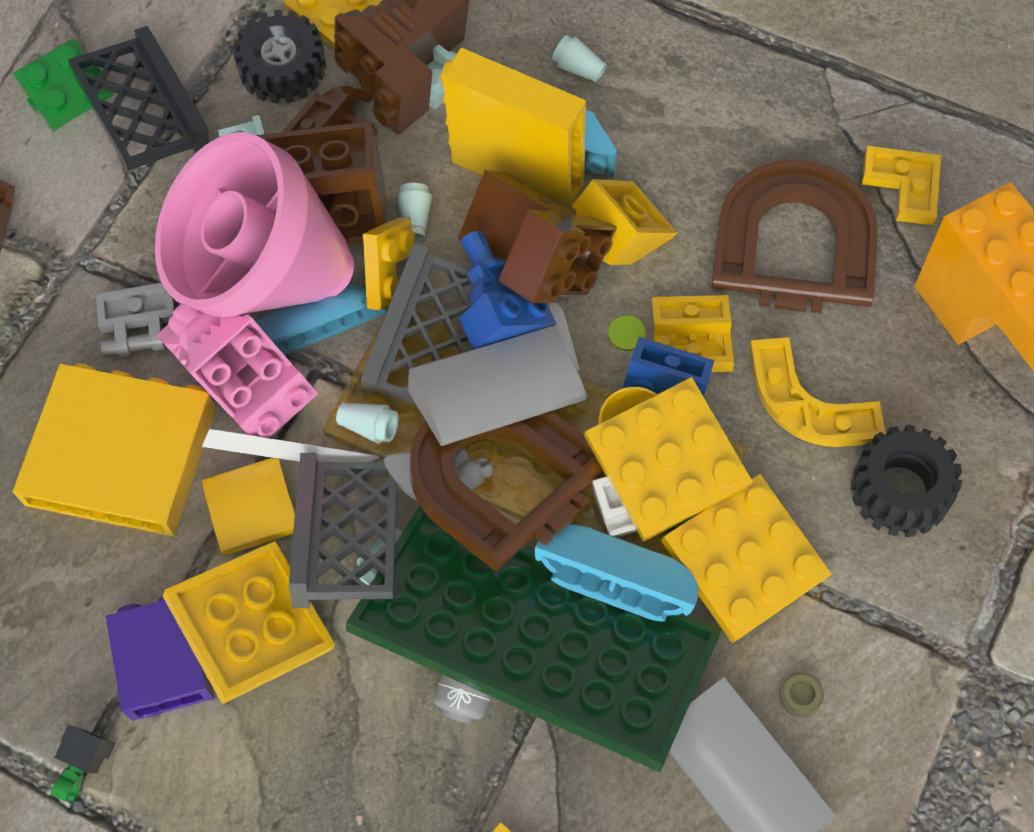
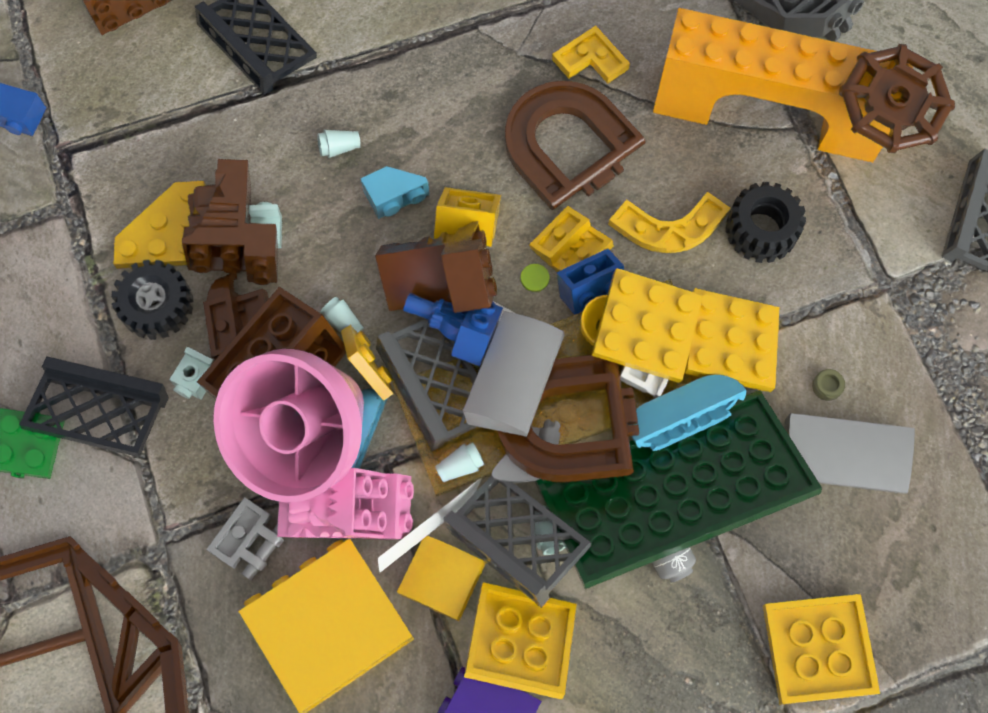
camera: 50 degrees left, 5 degrees up
(514, 126) = (363, 213): yellow brick -> none

